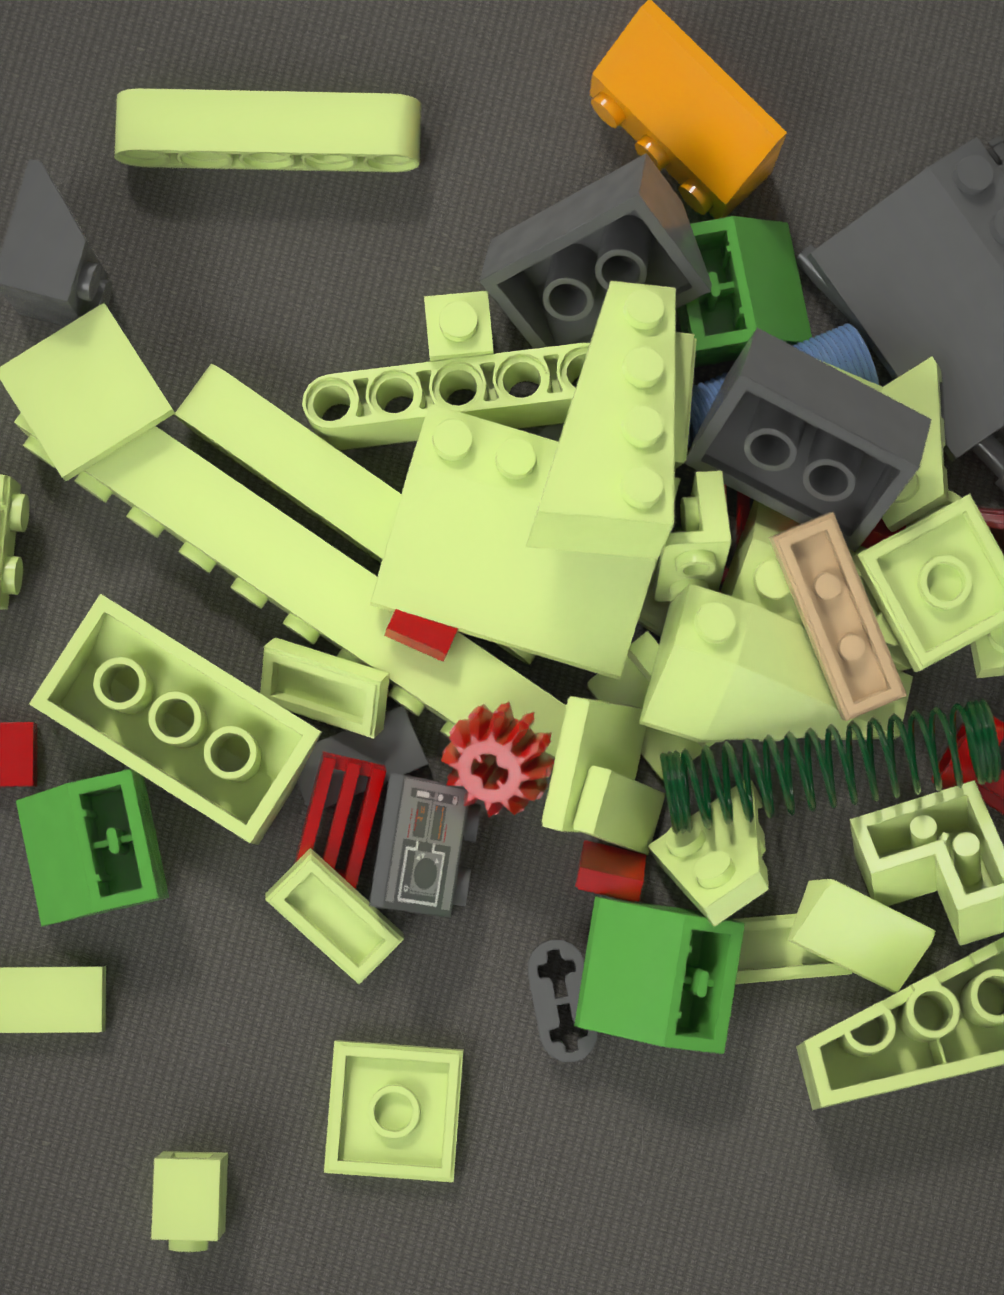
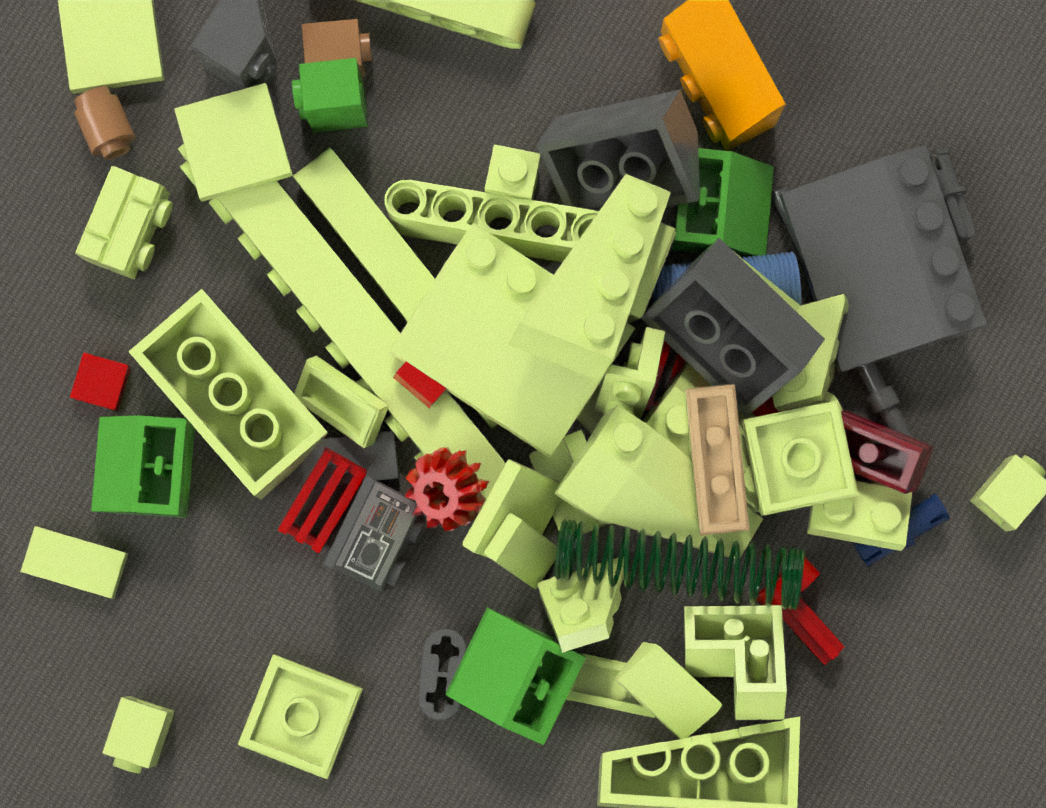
camera: 20 degrees right, 0 degrees up
(180, 236) = (336, 41): none -> medium nougat brick
(192, 295) = (331, 95): none -> bright green brick
(334, 916) = (299, 566): yellowish green tile -> none
(611, 871) = (504, 593): red tile -> none

